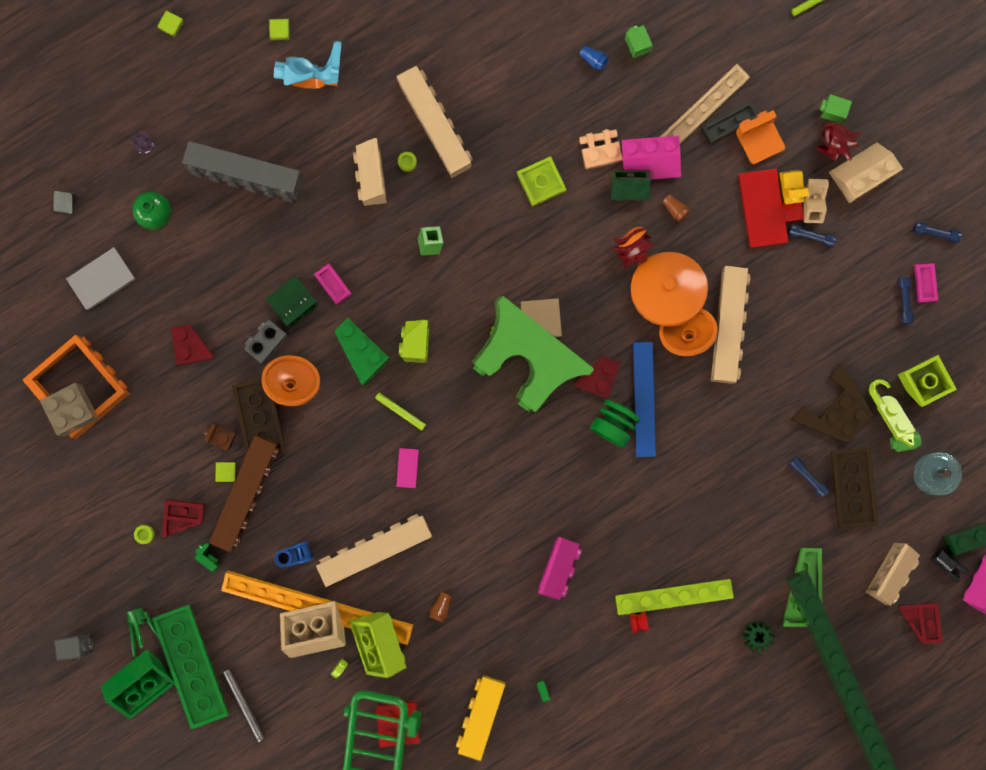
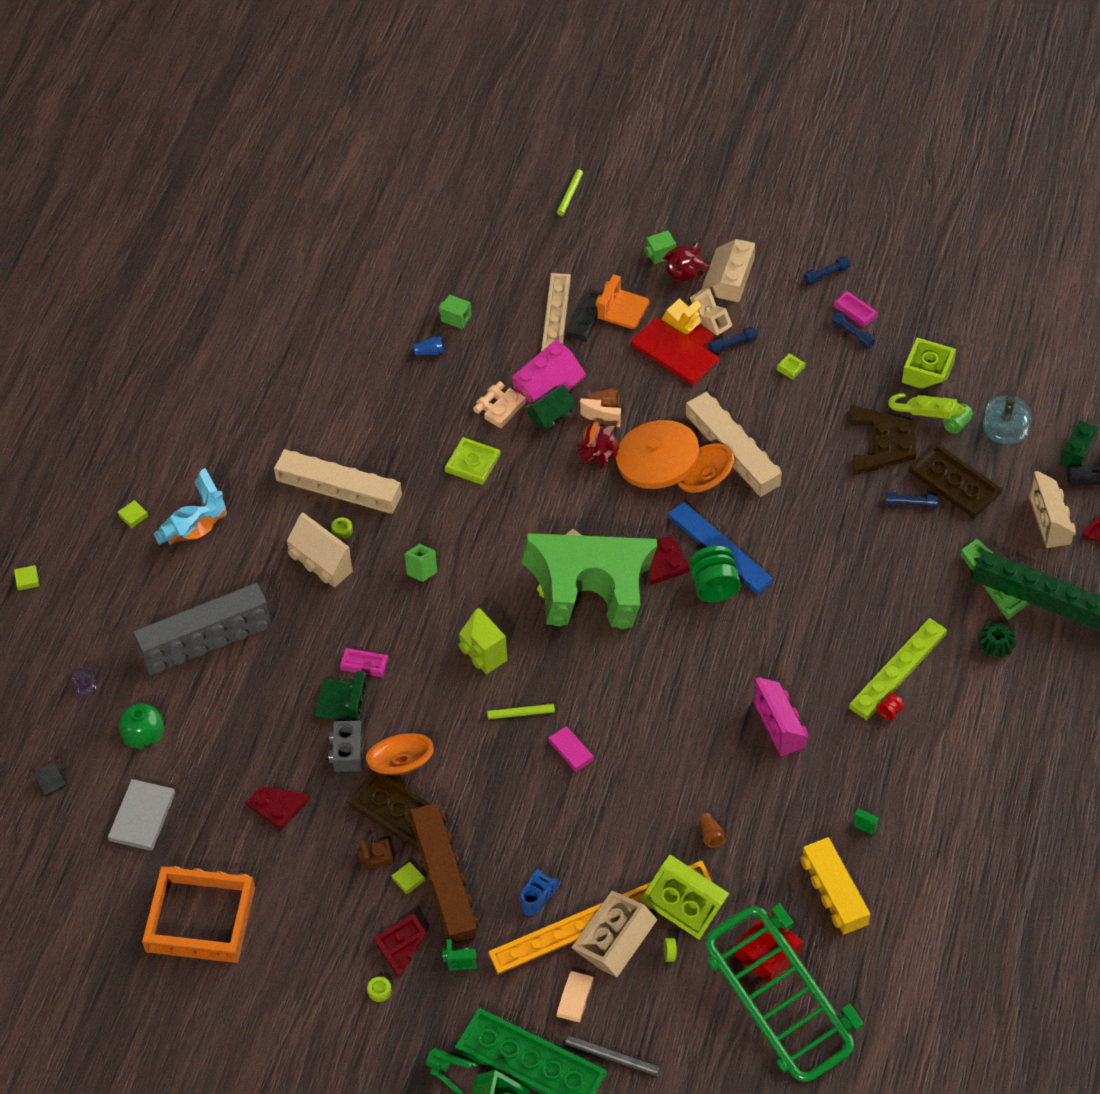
camera: 40 degrees left, 30 degrees down
(69, 409) = (214, 922): dark tan brick -> none
(254, 647) = (575, 996): none -> light nougat slope
(362, 353) = (440, 687): green wedge -> none
(373, 551) = (606, 832): tan brick -> none
(659, 213) = (604, 415): none -> light nougat slope
(832, 292) = (791, 366): none -> lime tile

